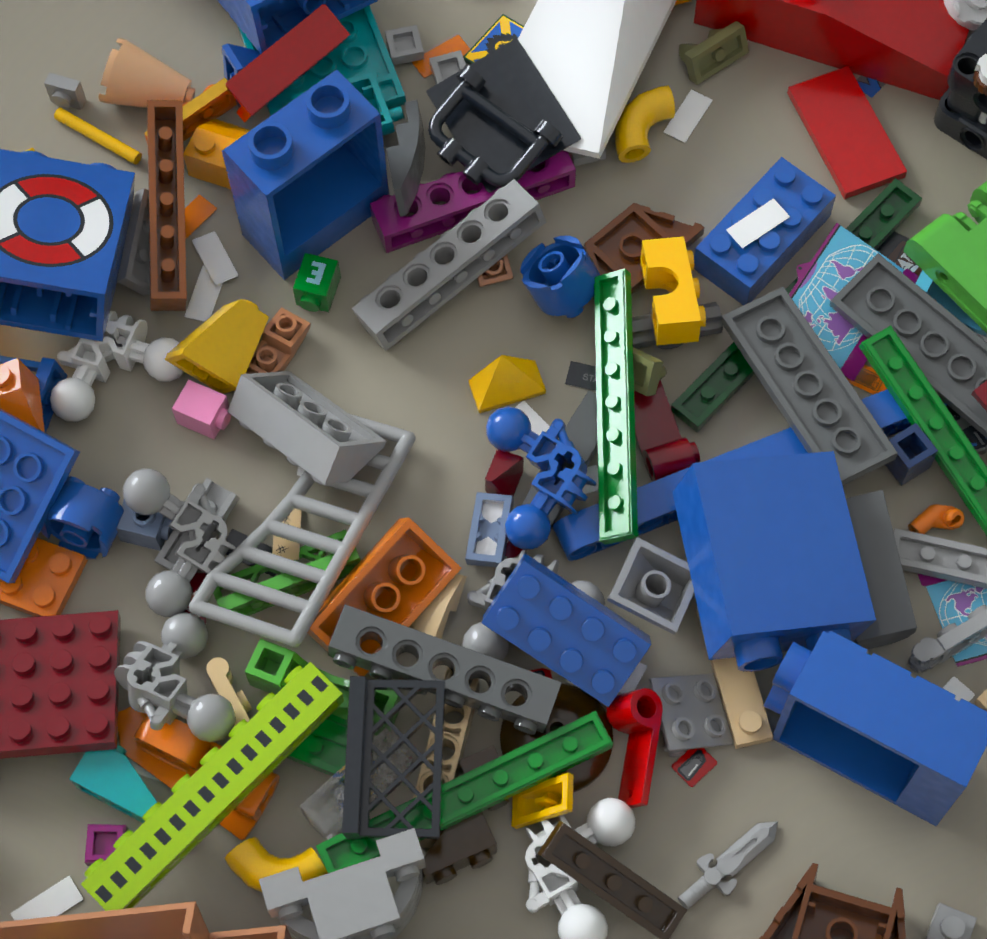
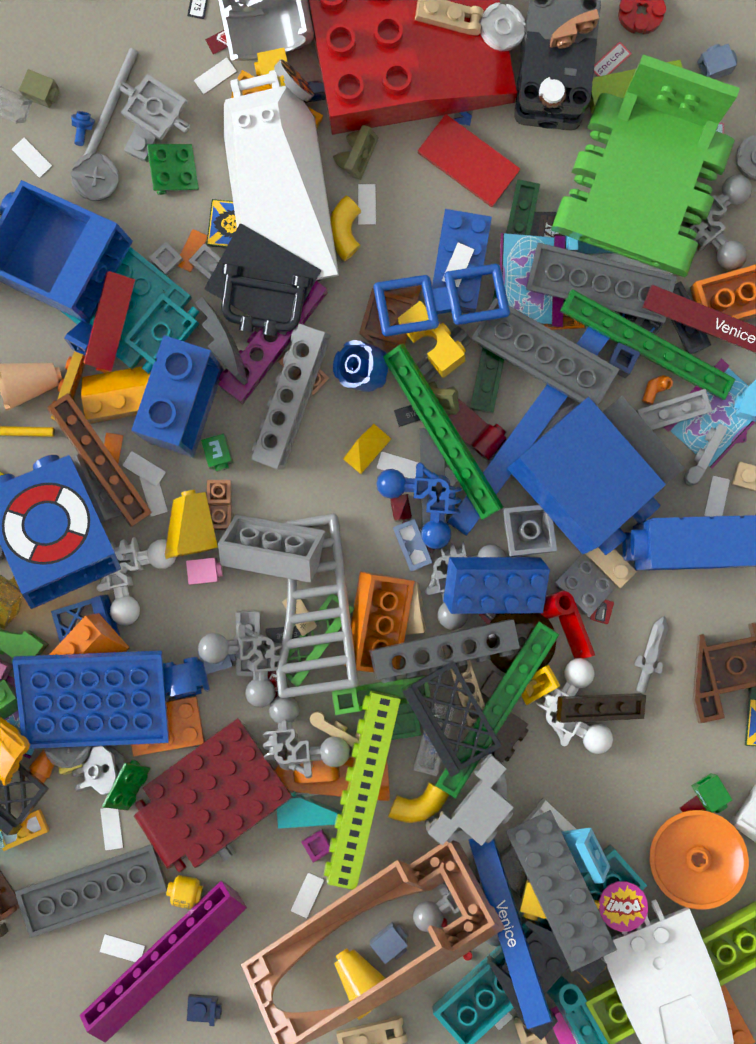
camera: 30 degrees left, 20 degrees up
(711, 246) = (441, 300): none -> blue bar

